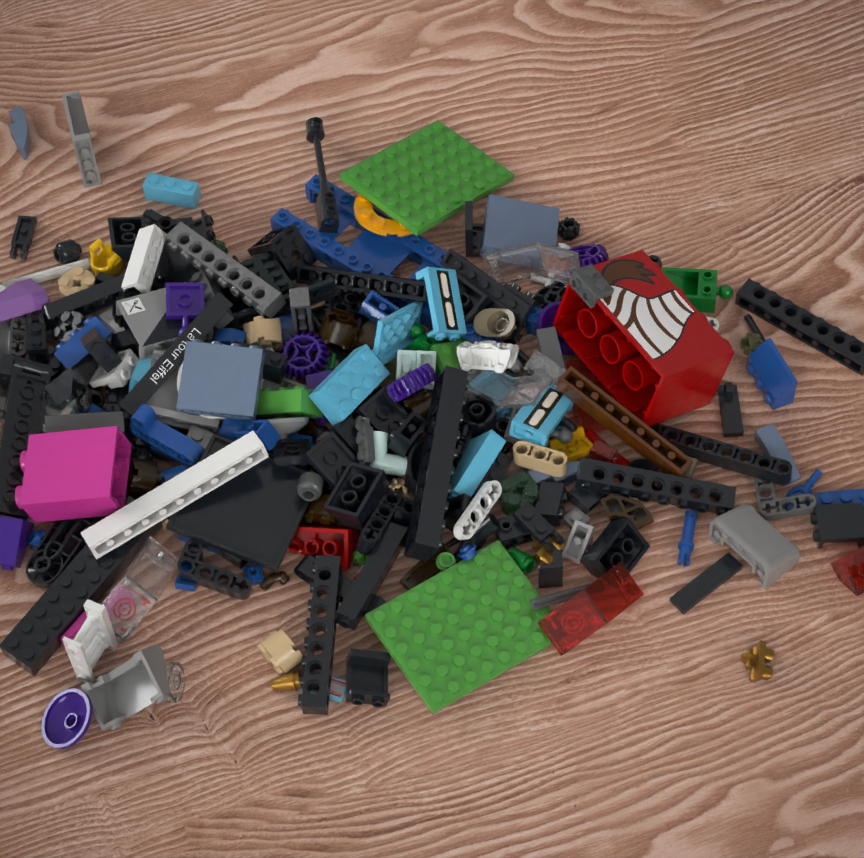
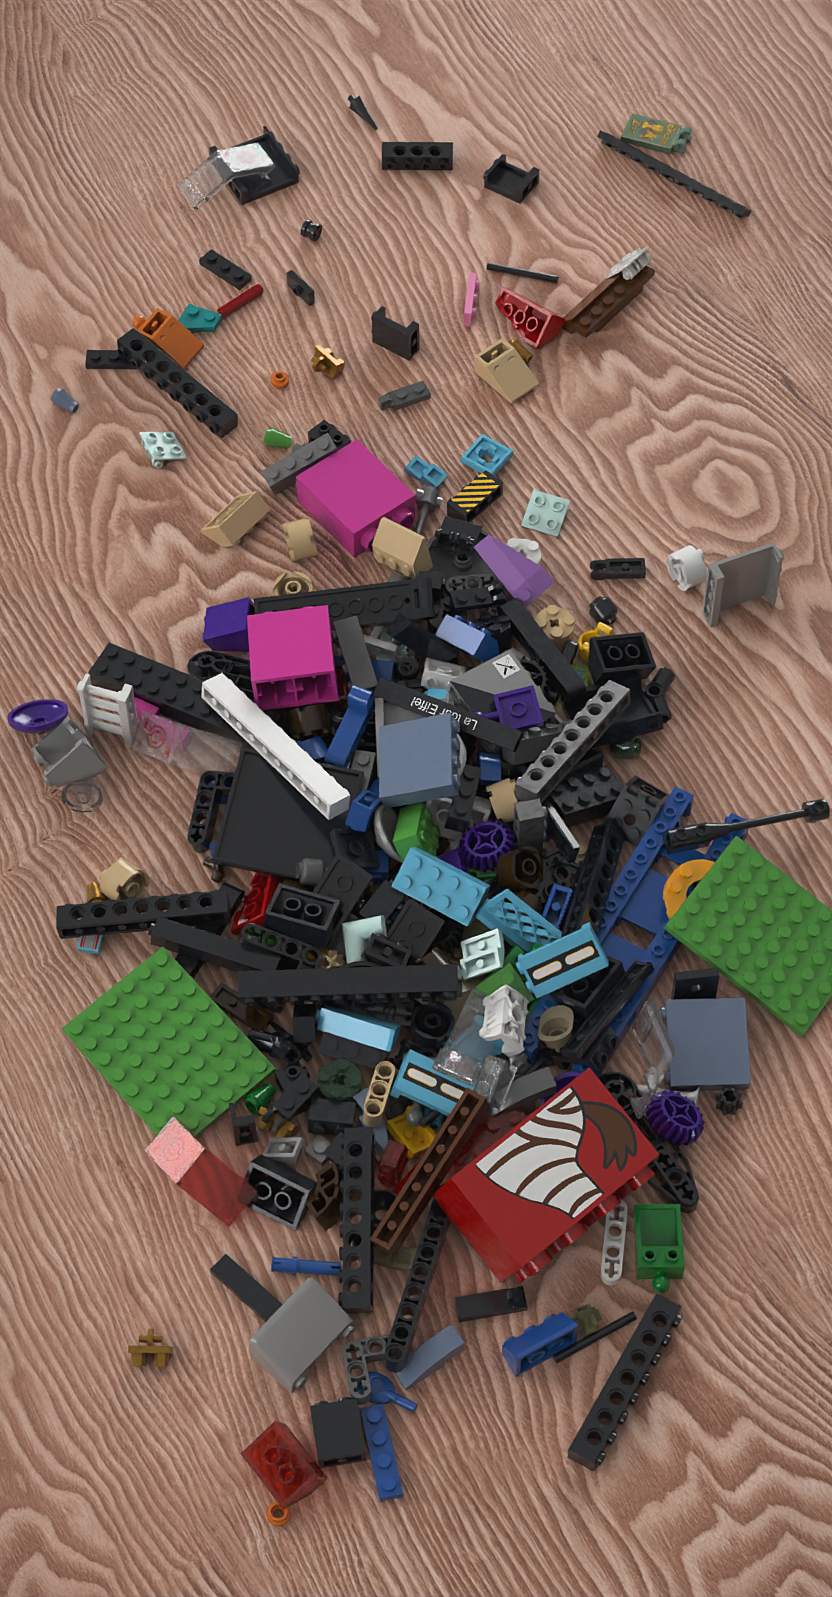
camera: 80 degrees right, 0 degrees up
(20, 131) = (761, 535): sand blue slope -> none
(35, 538) = (242, 653): blue plate -> none
(42, 183) = (687, 567): none -> white brick
(51, 273) = (571, 598): white axle -> none
(101, 350) = (452, 651): black brick -> none
(144, 259) = (579, 670): white panel -> none
(171, 190) = (705, 690): medium azure brick -> none
(365, 441) = (372, 910): dark grey hinge -> none
(367, 677) = (99, 967): black panel -> none
(411, 382) = (451, 945): dark purple gear -> none
(445, 560) = (244, 1020): bright green plate -> none
(467, 551) = (253, 1036): blue plate -> none
(475, 507) = (297, 1038): white beam -> none
(555, 598) = (209, 1135): dark grey axle -> none
(590, 284) = (575, 1089): dark grey bracket -> none

